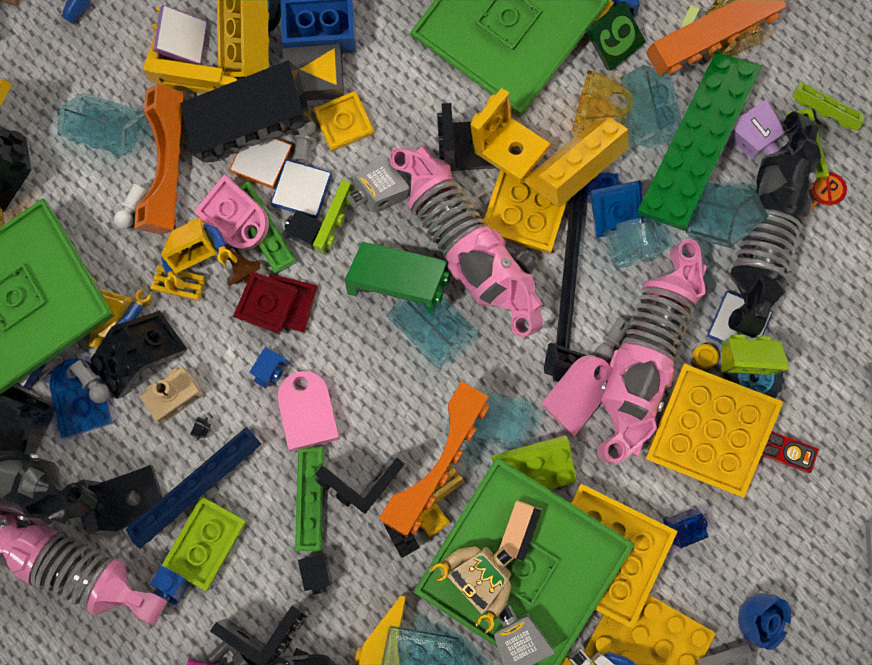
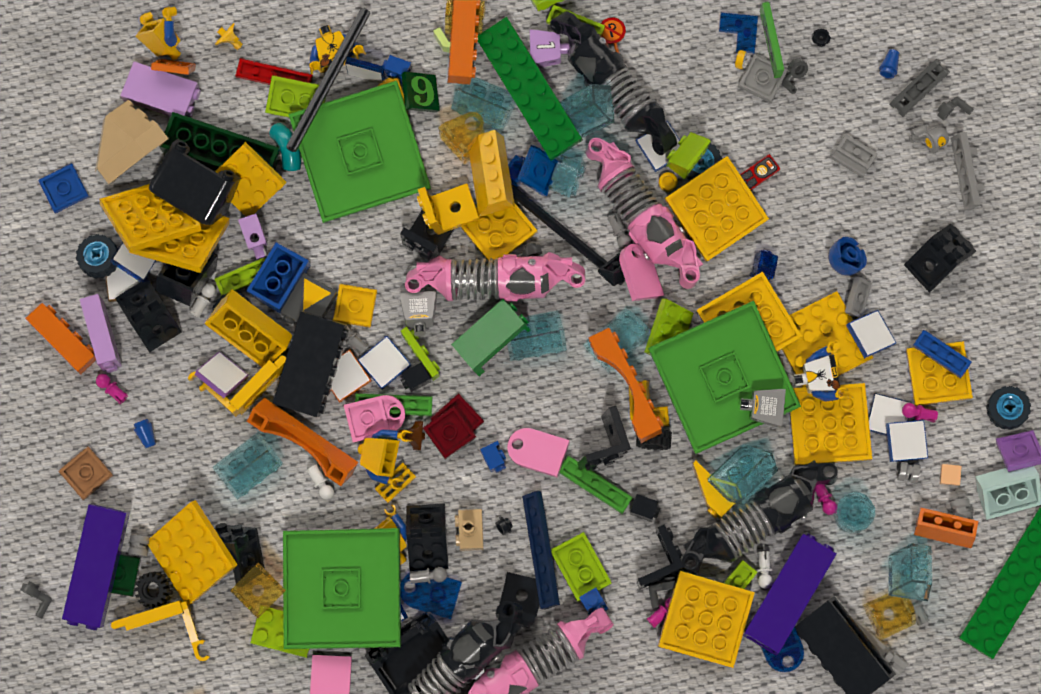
camera: 60 degrees left, 0 degrees up
(480, 578) = (714, 404): torso -> none
(521, 529) = (701, 362): light nougat tile -> none

